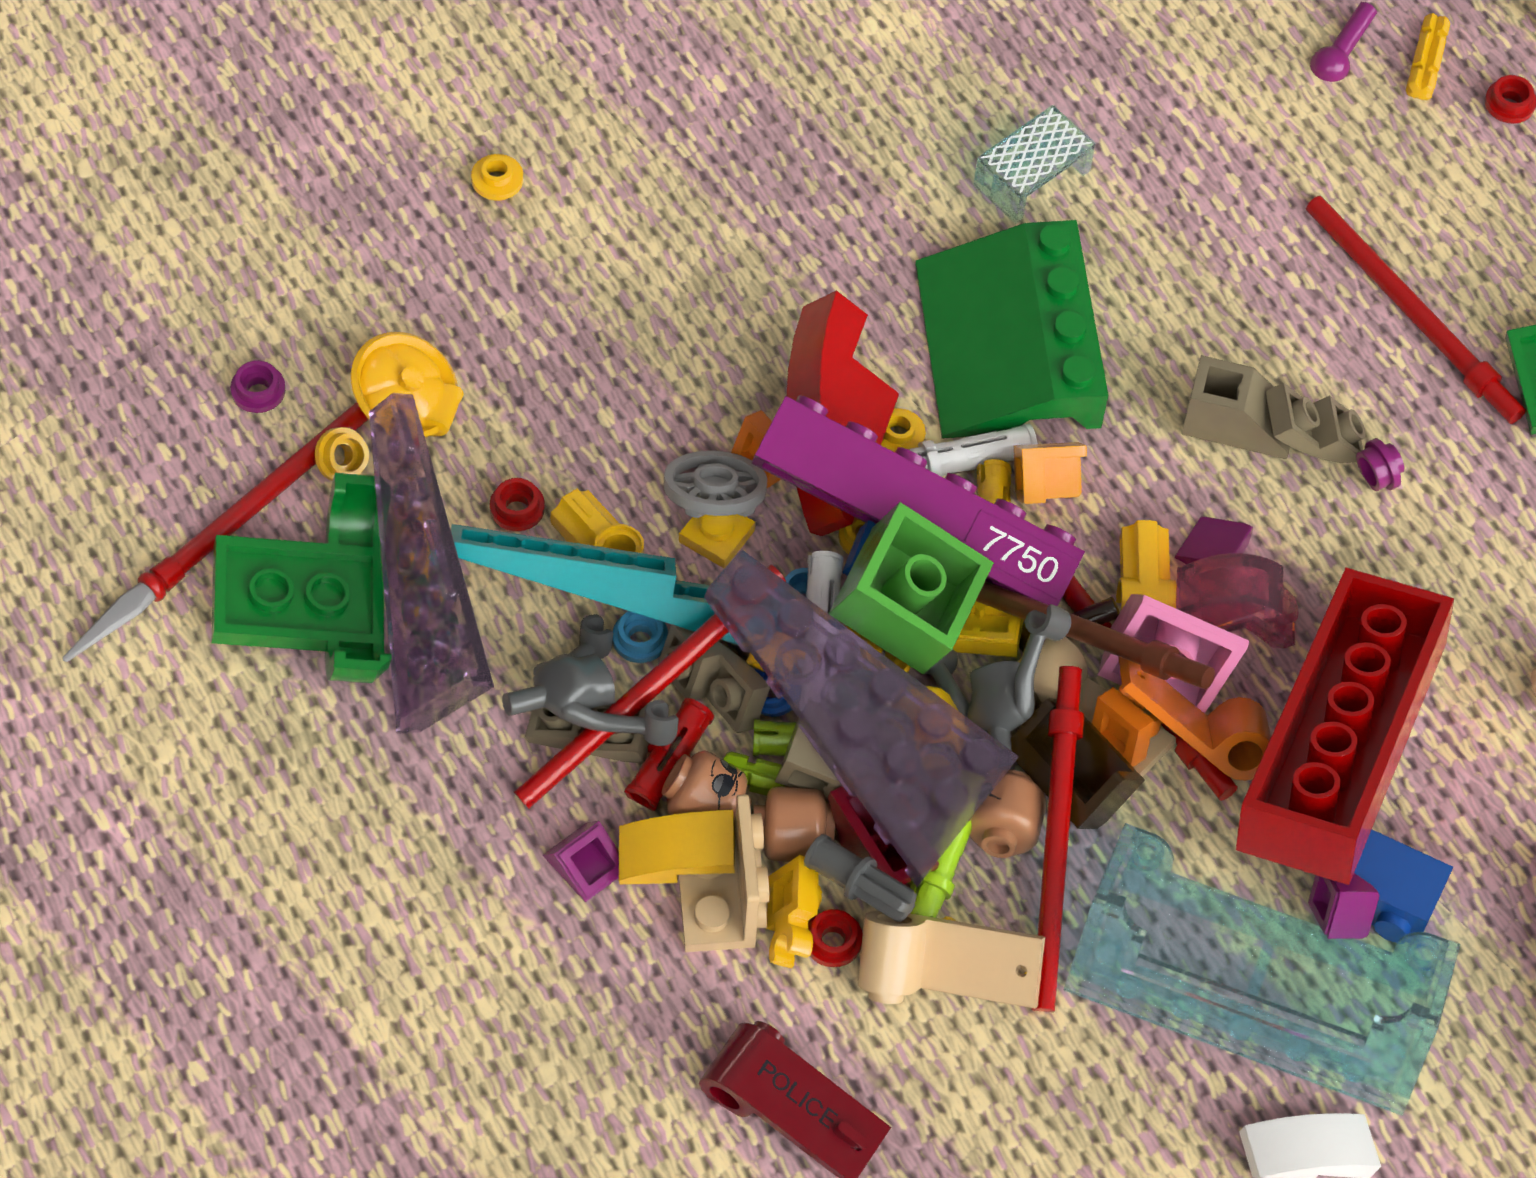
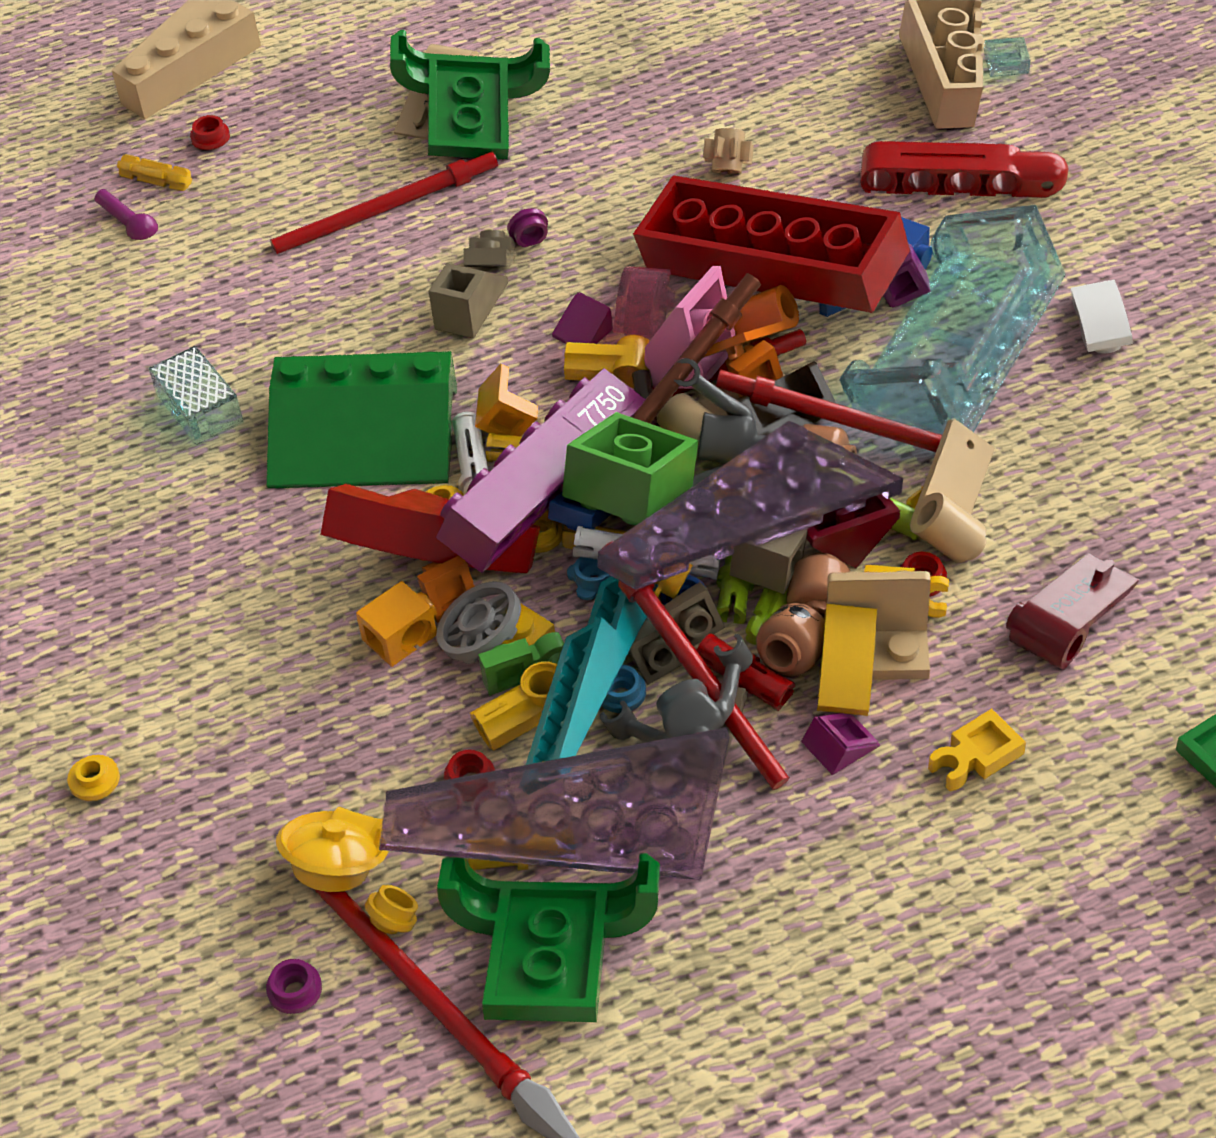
camera: 75 degrees left, 10 degrees down
(574, 1000) = (980, 746): none -> yellow plate
(660, 524) = (506, 662): none -> bright green plate
(707, 407) = (397, 622): none -> light orange brick
(860, 878) = (894, 525): dark grey axle -> none

